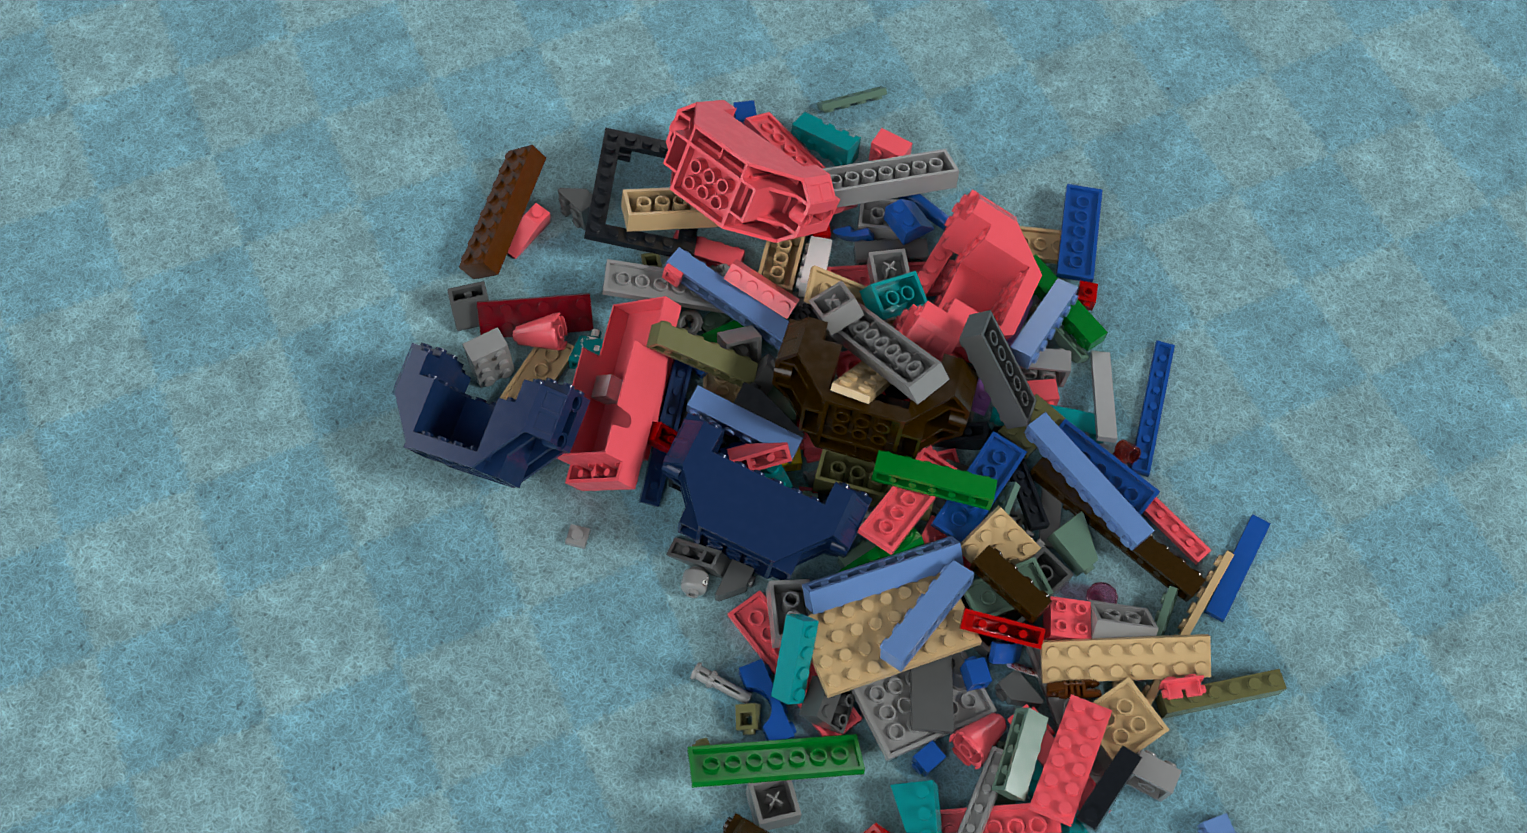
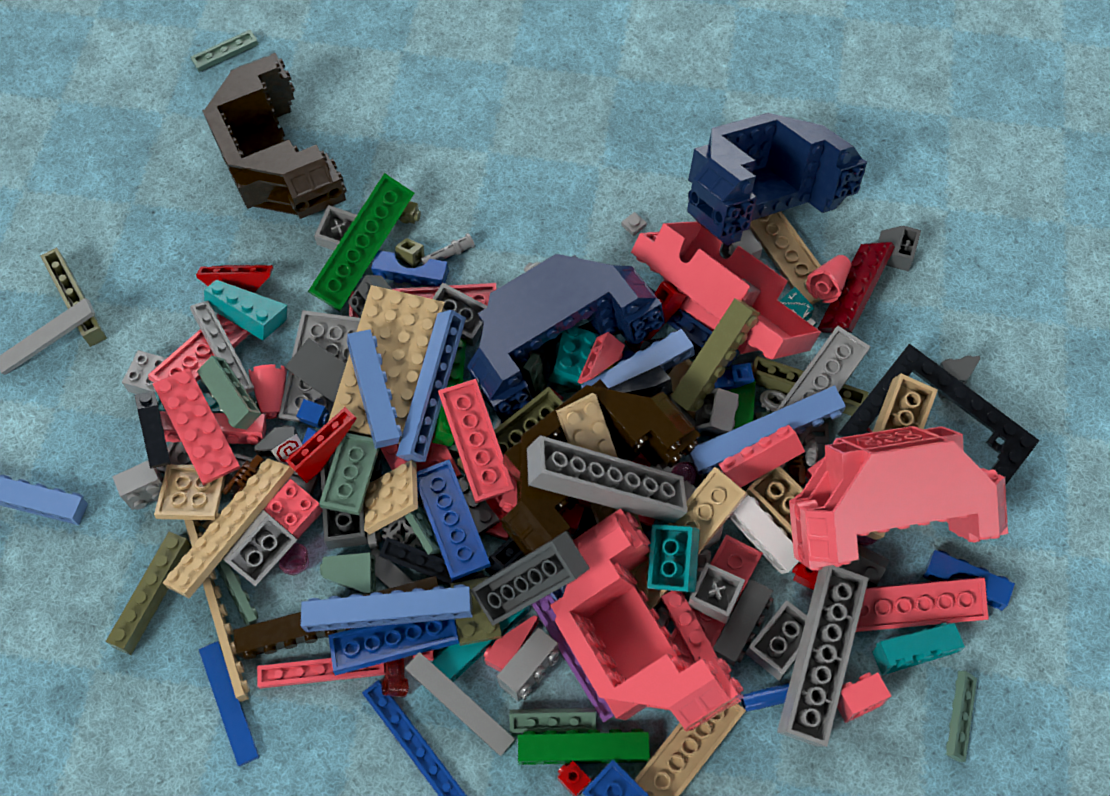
camera: 130 degrees right, 0 degrees up
(489, 357) = (829, 225): light grey brick -> none
(502, 212) = (986, 313): reddish brown brick -> none
(529, 228) = (957, 328): coral slope -> none
(672, 275) = (820, 387): coral tile -> none
(794, 658) = (417, 284): teal brick -> none
(836, 307) = (685, 479): light grey brick -> none
(849, 234) = (779, 597): blue slope -> none
(907, 220) = (760, 645): blue slope -> none
(927, 759) = (284, 347): blue brick -> none
(934, 480) = (471, 466): green brick -> none
(1011, 584) = (348, 469): dark brown brick -> none
(1043, 323) = (561, 687): medium blue brick -> none
(1173, 686) = (170, 559): coral hinge -> none

